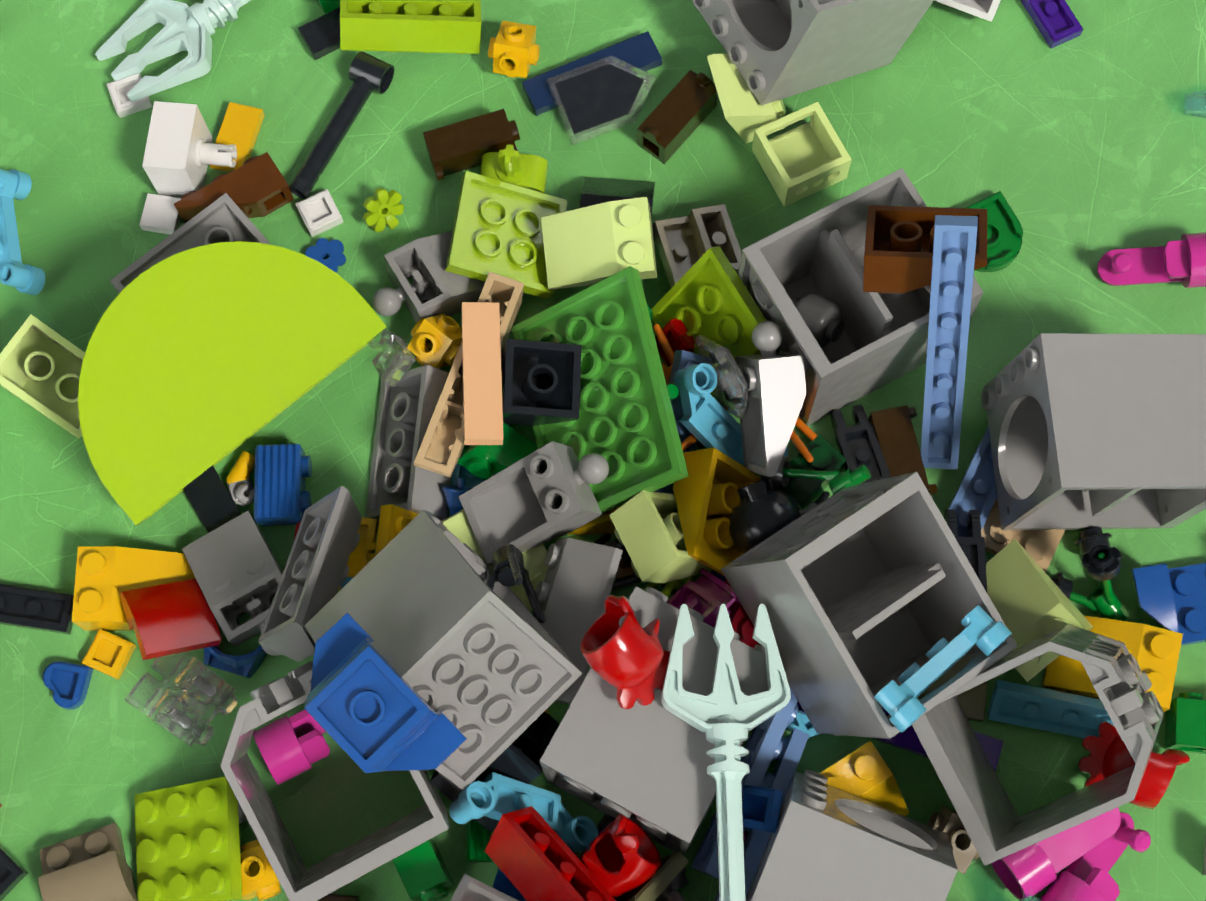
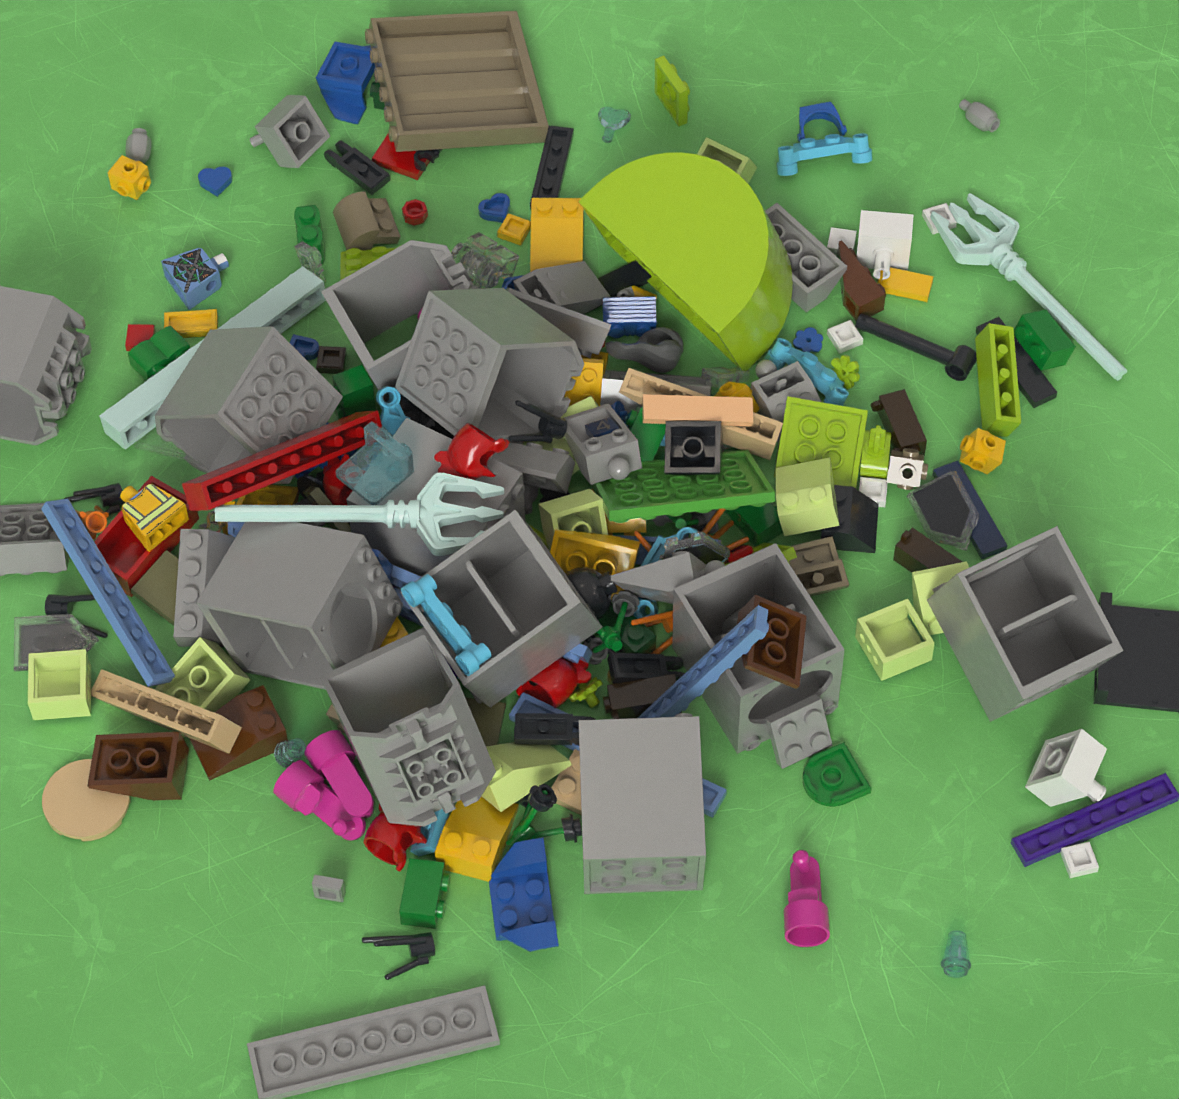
camera: 90 degrees right, 15 degrees down
(69, 803) = (414, 212): none -> red tile
(170, 618) = (530, 247): red slope -> none
(343, 449) = (656, 349): none -> dark grey piece
(373, 707) = (430, 294): blue piece -> none
(394, 233) = (822, 378): none -> medium azure plate
(515, 498) = (601, 427): none -> dark blue tile
(542, 135) = (905, 478): none -> brick
(566, 182) = (874, 489): none -> white tile
(644, 798) = (377, 466): none -> clear light blue bracket

